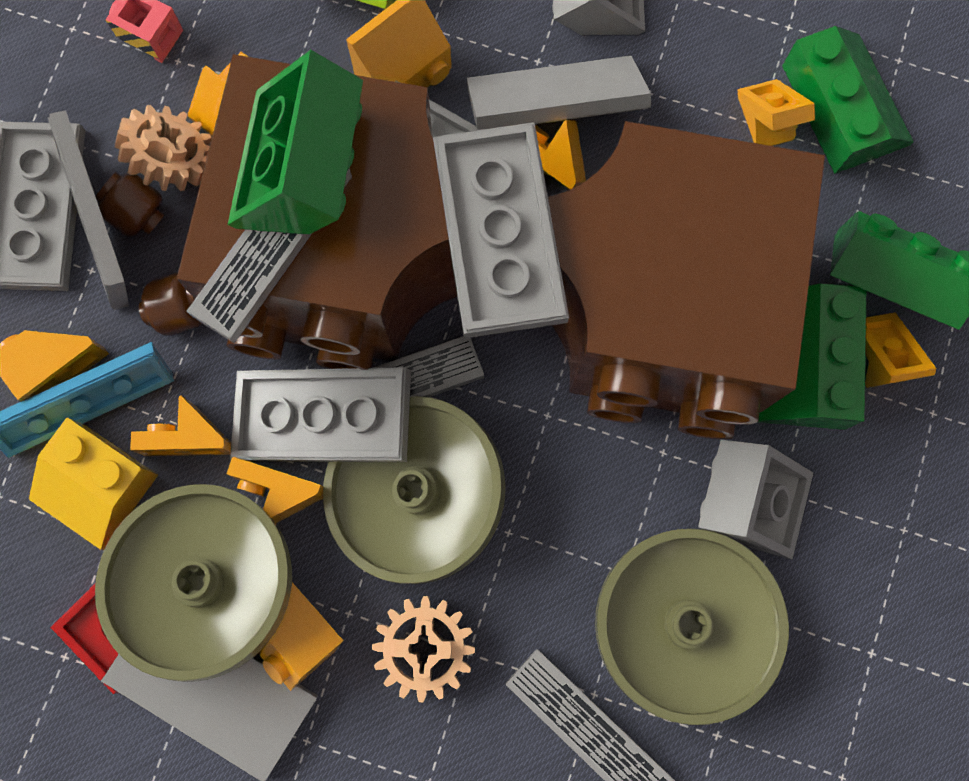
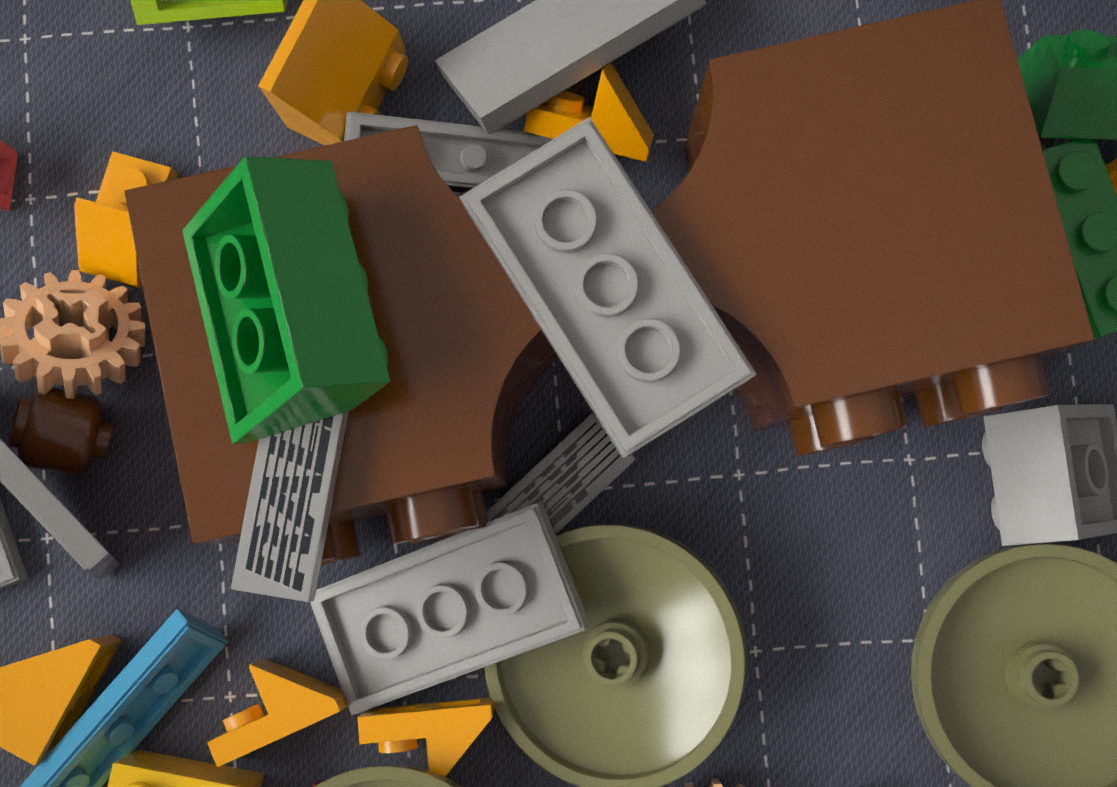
camera: 15 degrees left, 5 degrees up
(166, 306) = (166, 548): reddish brown head -> none

